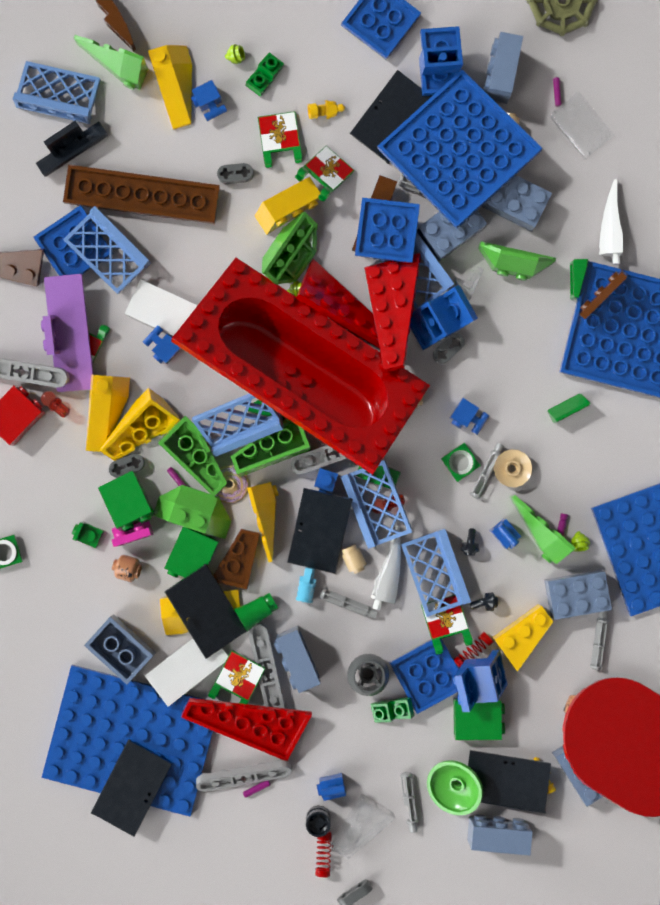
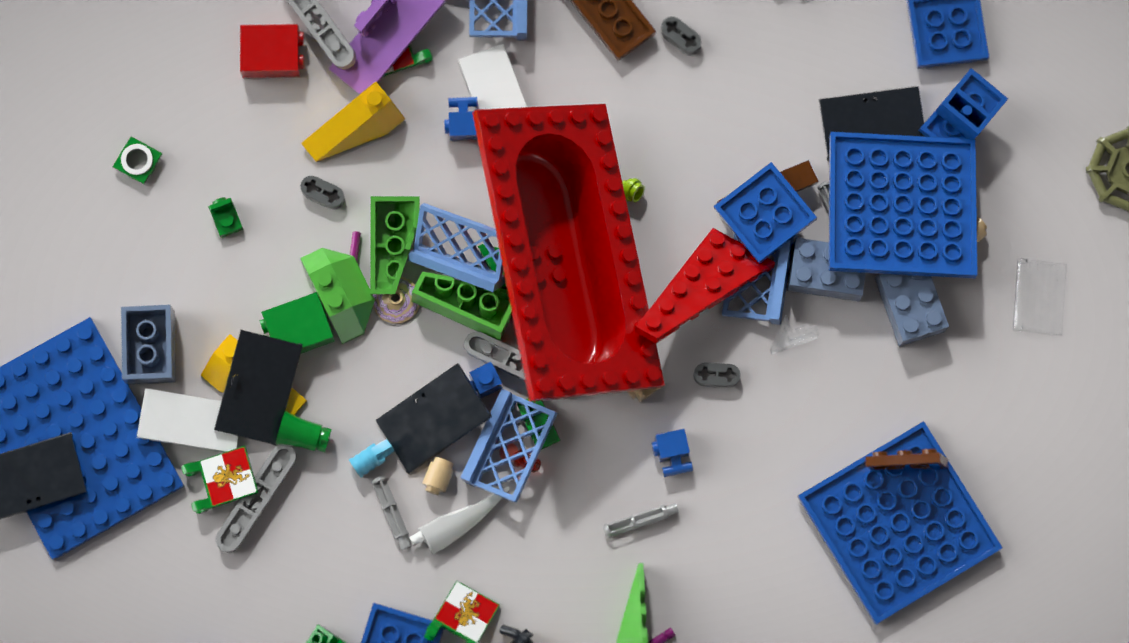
camera: 45 degrees right, 10 degrees down
(55, 404) = (315, 76): clear red axle -> none
(126, 501) = (290, 221): green brick -> none
(127, 568) = (229, 280): nougat head -> none
(140, 531) = (266, 254): dark pink bracket -> none
(143, 421) = (375, 168): yellow wedge -> none
(238, 562) = (331, 375): reddish brown wing -> none
(243, 776) = (147, 578): light grey piece -> none
(256, 788) = (136, 596): magenta piece -> none
(260, 727) = (198, 540): red wing -> none
(264, 506) = (409, 345): yellow wedge -> none
(279, 134) = (754, 40): flag -> none
(287, 205) = (699, 106): yellow wedge -> none
(291, 250) = (661, 149): bright green wedge -> none
(297, 659) = (294, 512): sand blue brick -> none
(327, 170) = (766, 111): flag -> none
(329, 109) = (821, 61): yellow piece -> none
(334, 301) = (655, 231): red wing -> none
(358, 686) = (343, 570): dark grey wheel -> none
(442, 317) = (737, 338): blue bracket -> none
(452, 568) = (519, 572): medium blue fence -> none
(469, 547) = (554, 572): black plate -> none
(473, 463) = (616, 473): green piece -> none
(503, 66) = (1014, 173): sand blue brick -> none
(505, 534) = (599, 592): blue brick -> none
(514, 261) = (856, 357): bright green wedge -> none
(522, 465) = (674, 529): tan dish -> none
(557, 91) = (1046, 245): magenta piece -> none
(568, 407) = (772, 537): green slope -> none
(577, 273) = (903, 423): green slope -> none
(611, 232) = (970, 419): white piece -> none

